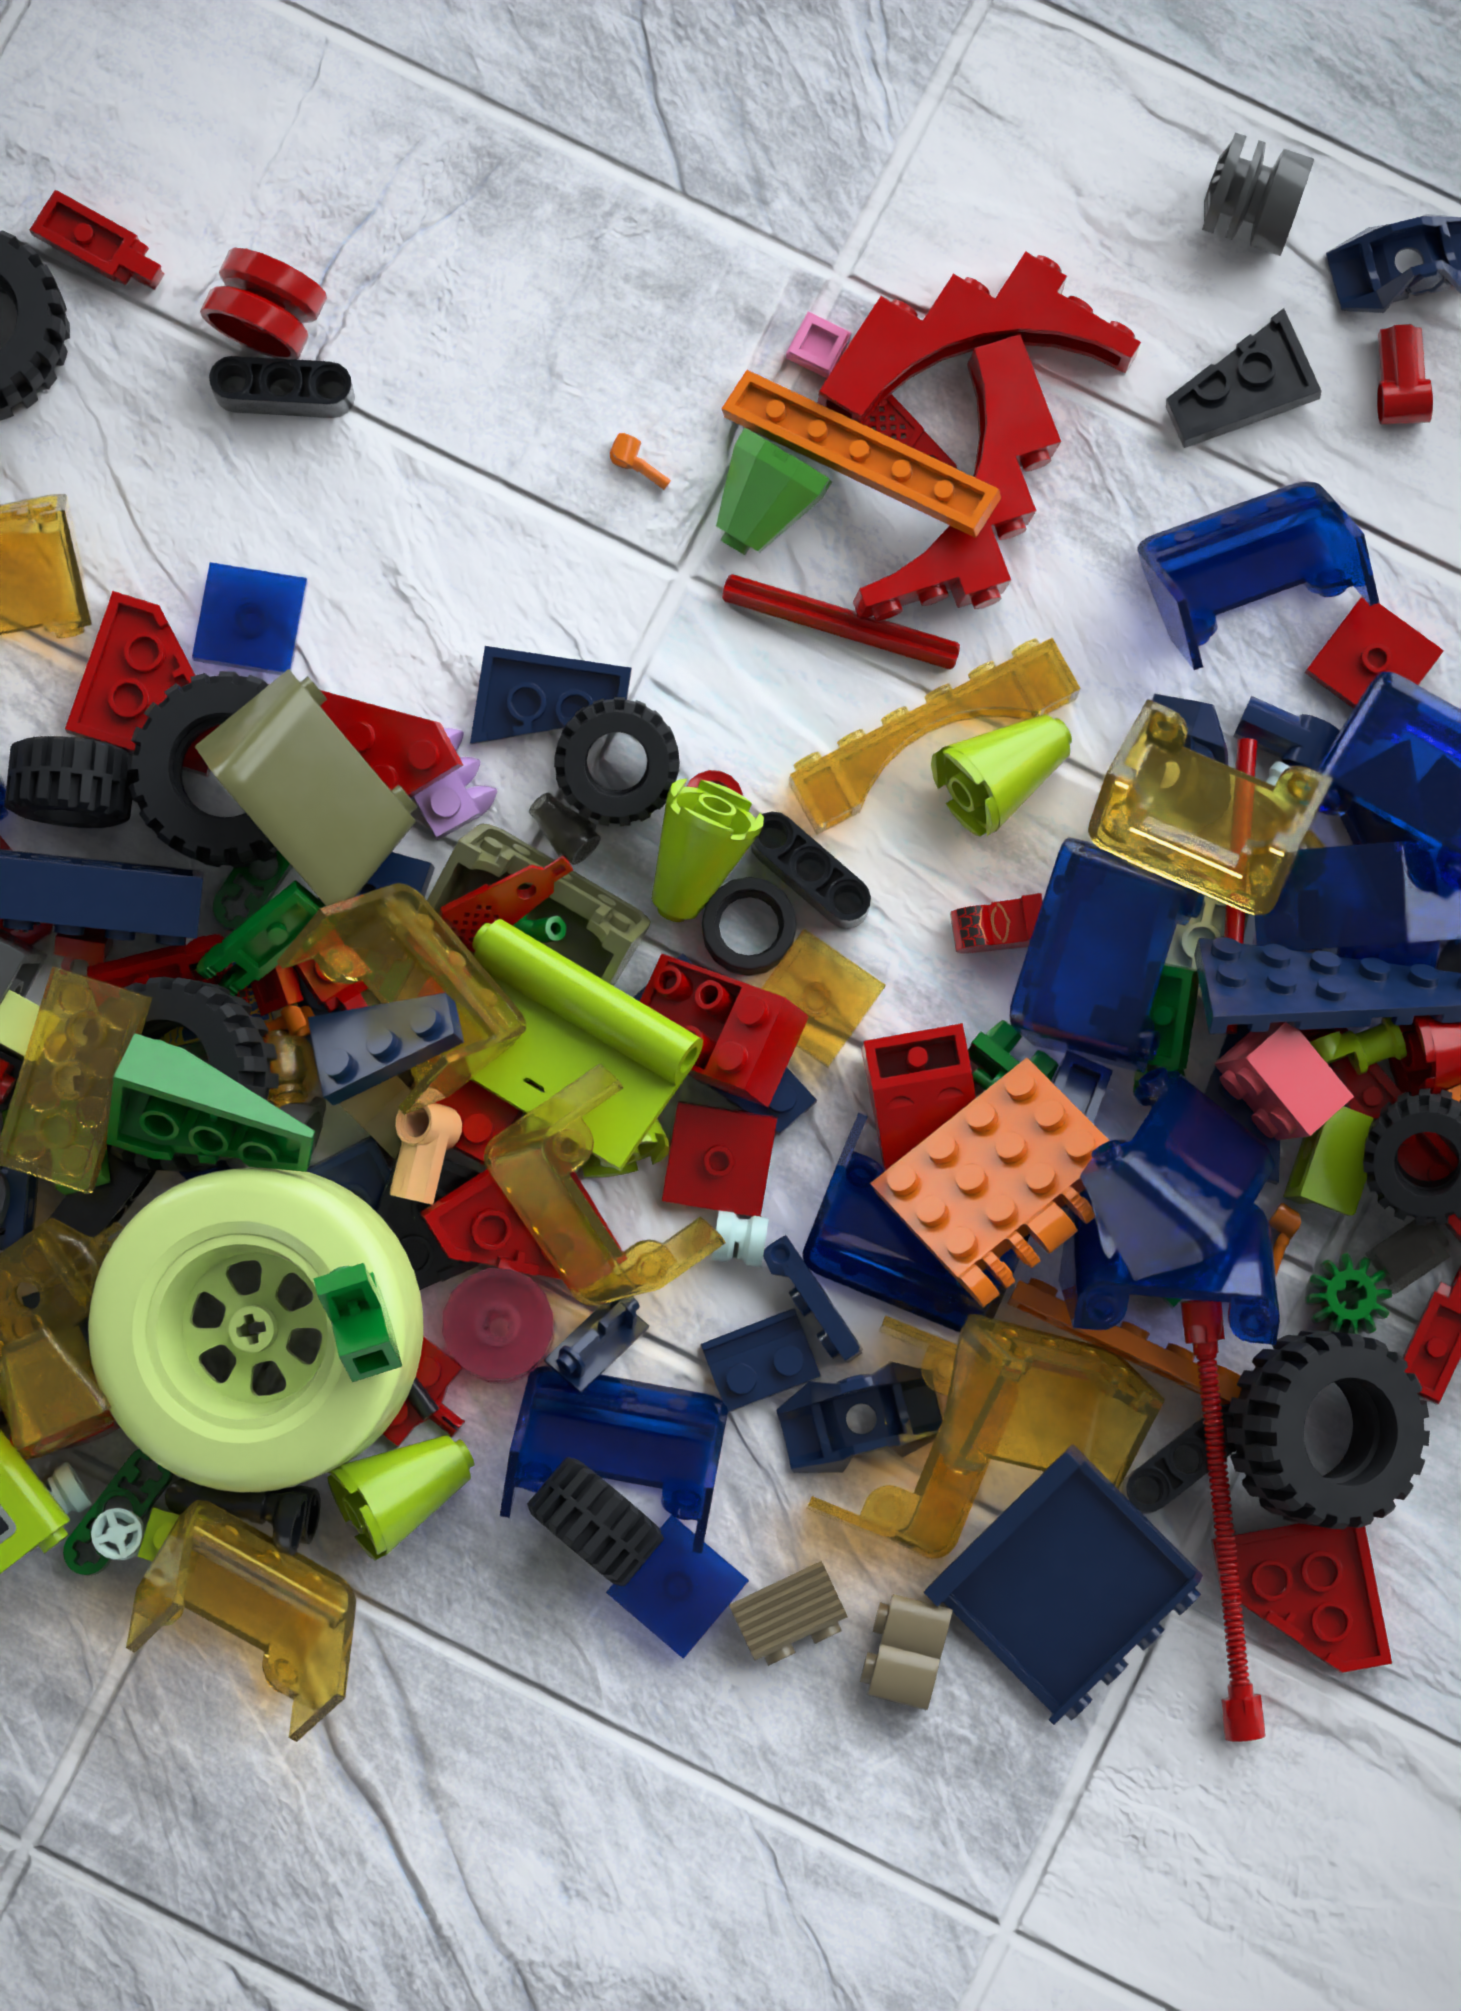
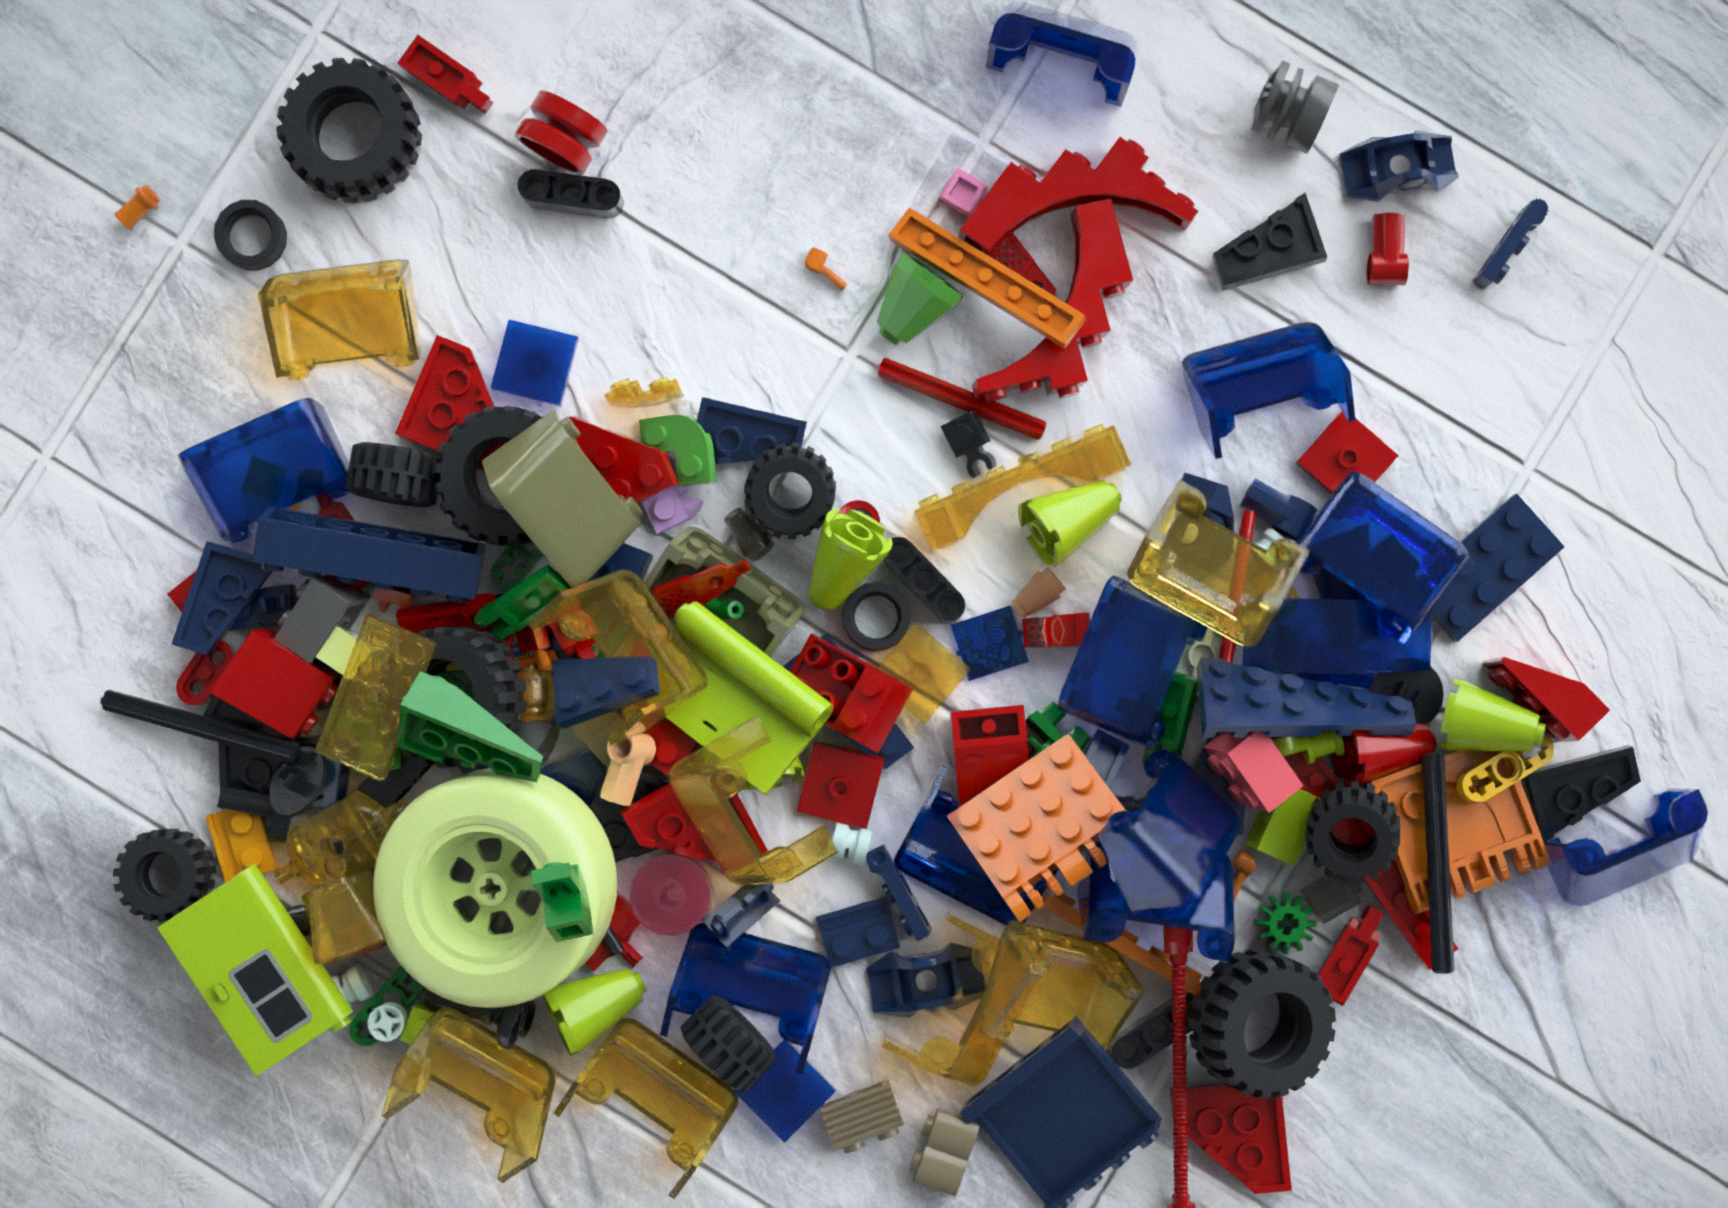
camera: 15 degrees right, 5 degrees up
(387, 652) = (631, 395): none -> clear yellow slope
(472, 709) = (690, 443): none -> bright green plate
(503, 1596) = (663, 1087): none -> clear yellow windscreen
(852, 673) = (966, 437): none -> black plate
(889, 113) = (1027, 24): none -> clear blue windscreen
(908, 950) = (989, 643): none -> clear blue piece
(969, 875) = (1038, 592): none -> medium nougat cone

